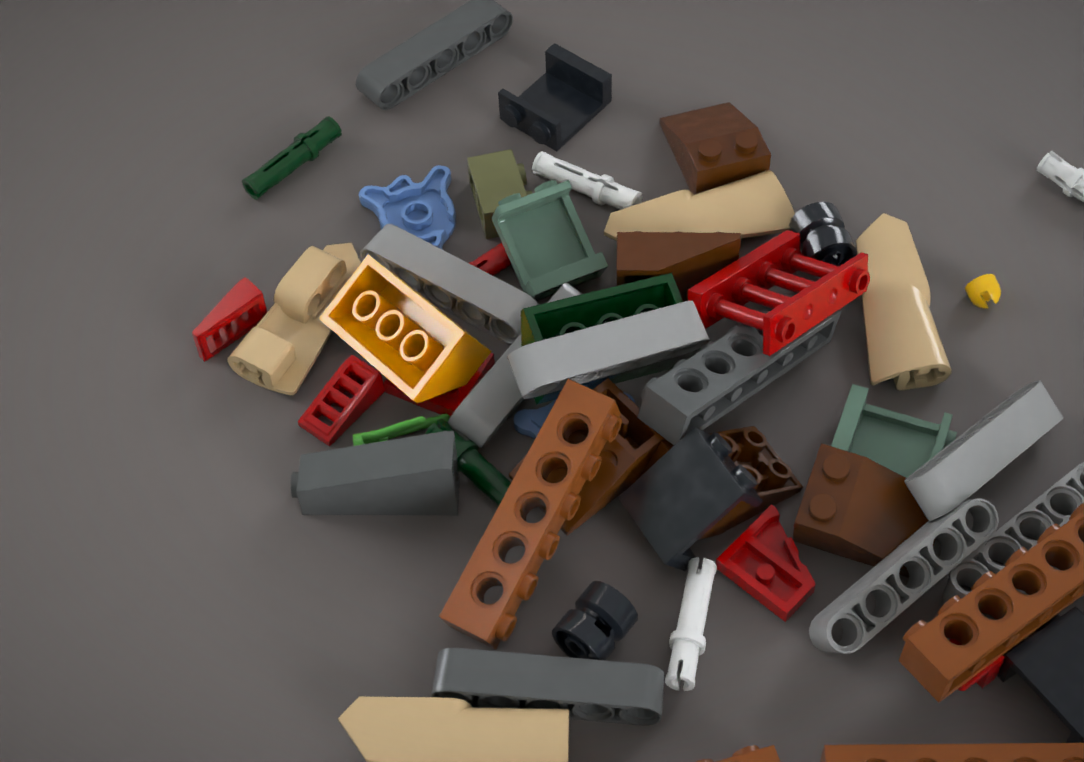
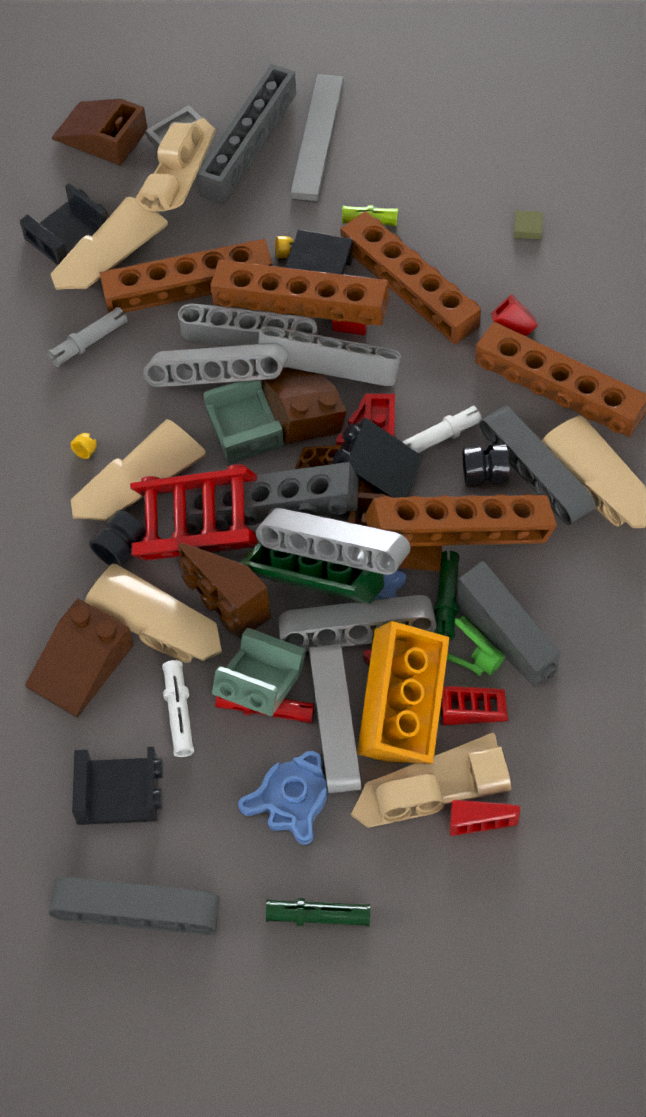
camera: 130 degrees left, 5 degrees up
(493, 179) = (235, 747): olive brick -> none

